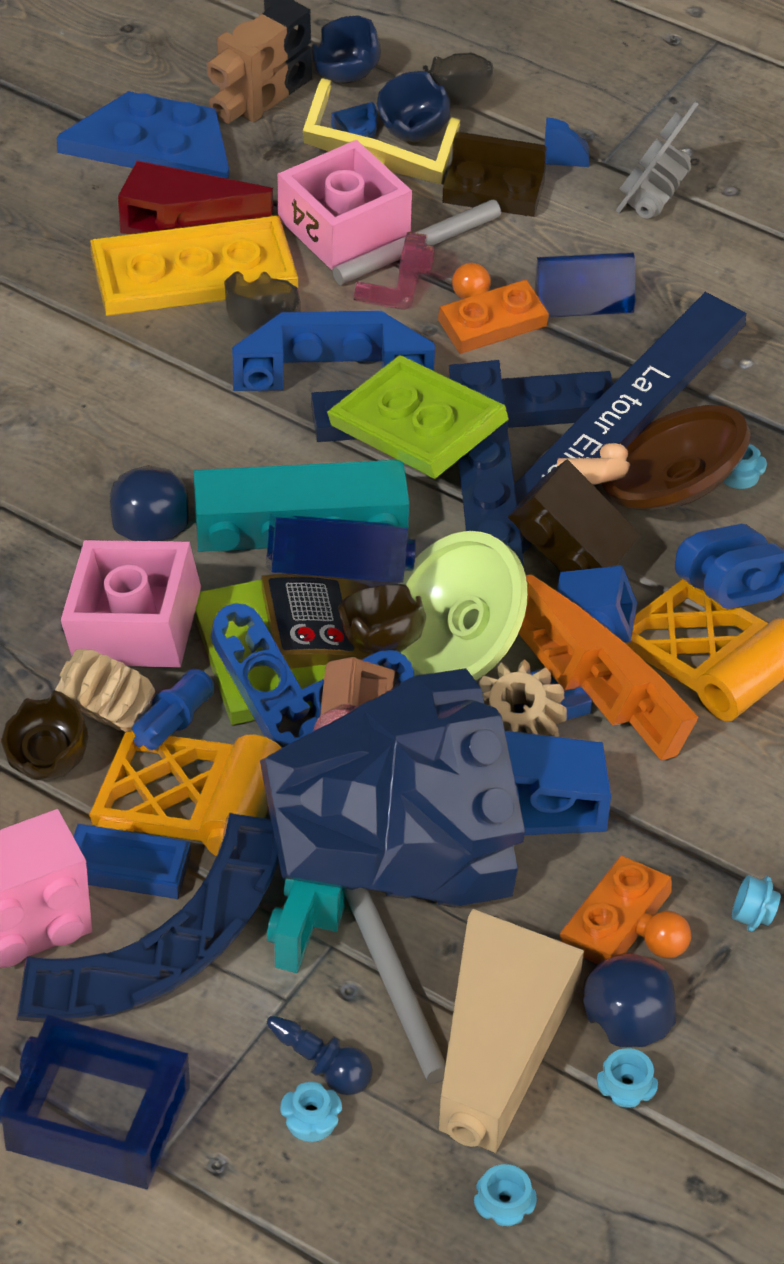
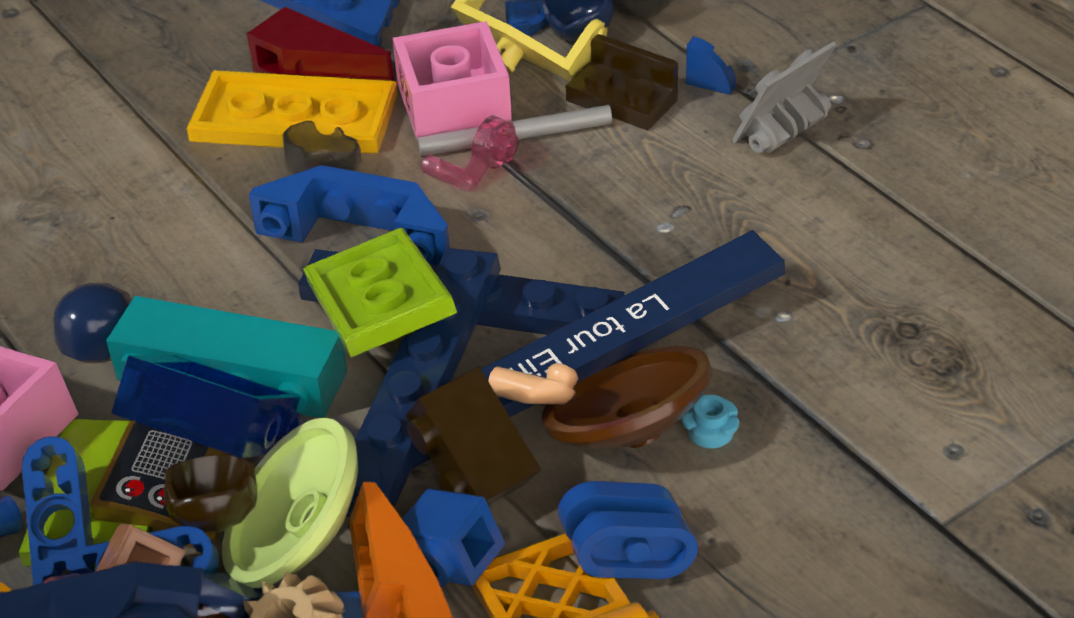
camera: 25 degrees right, 5 degrees down
(489, 315) = (541, 208): orange plate -> none
(586, 284) = (650, 202): clear blue slope -> none

